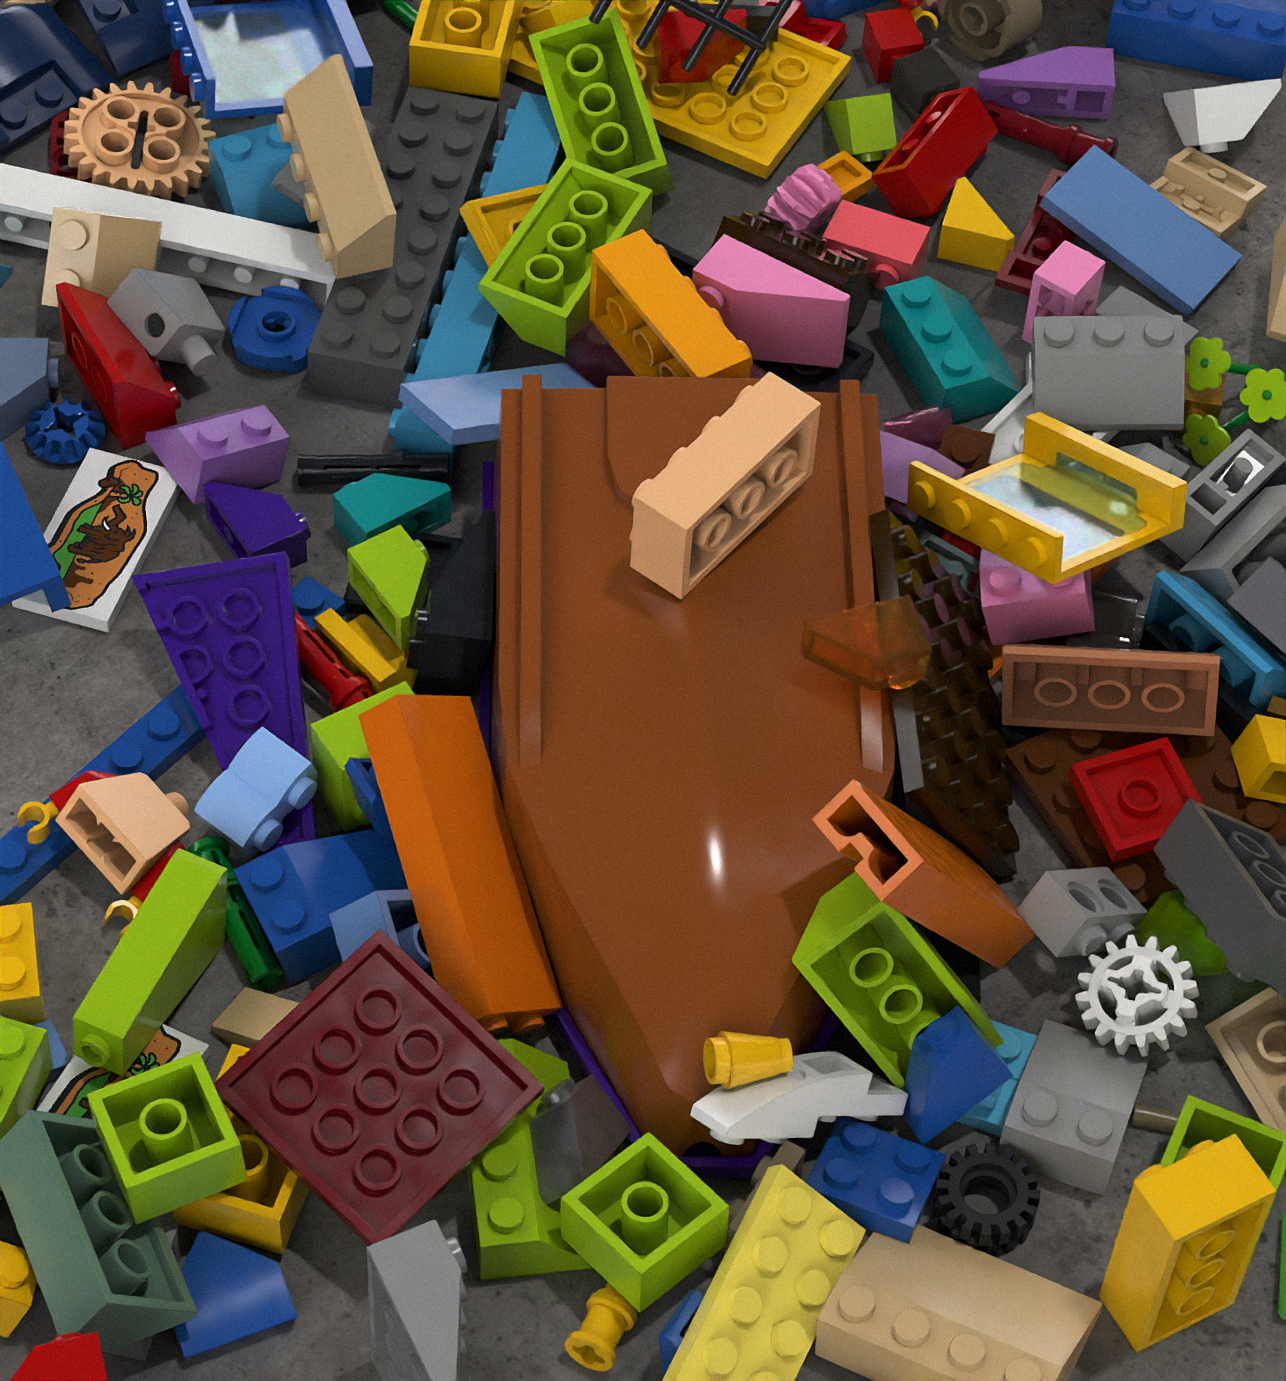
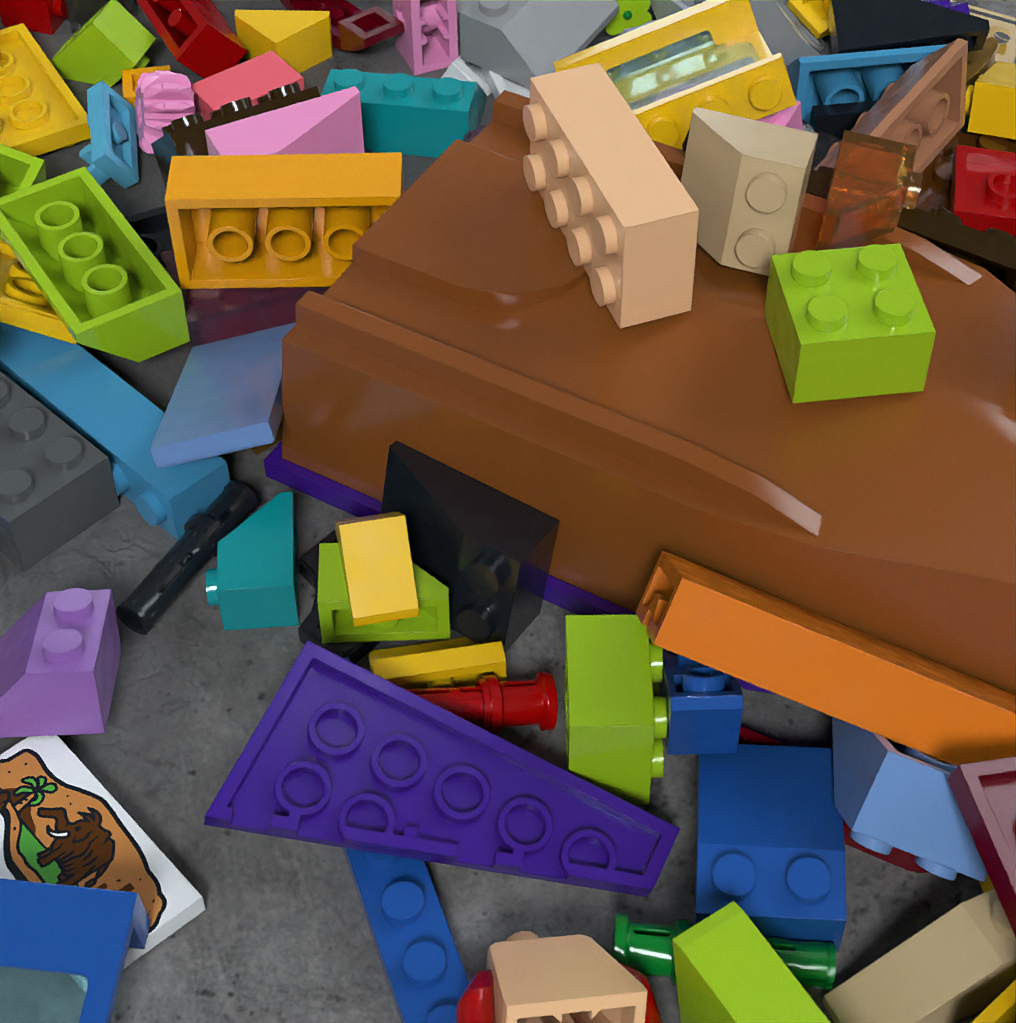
camera: 55 degrees left, 5 degrees down
(256, 522) = (185, 691): dark purple slope -> none
(257, 793) = (598, 839): light blue brick -> none
(392, 558) = (377, 568): none -> yellow slope
(702, 685) = (848, 323): none -> lime brick
(755, 183) = (112, 137): none -> medium azure plate
(801, 570) = (747, 186): none -> tan slope

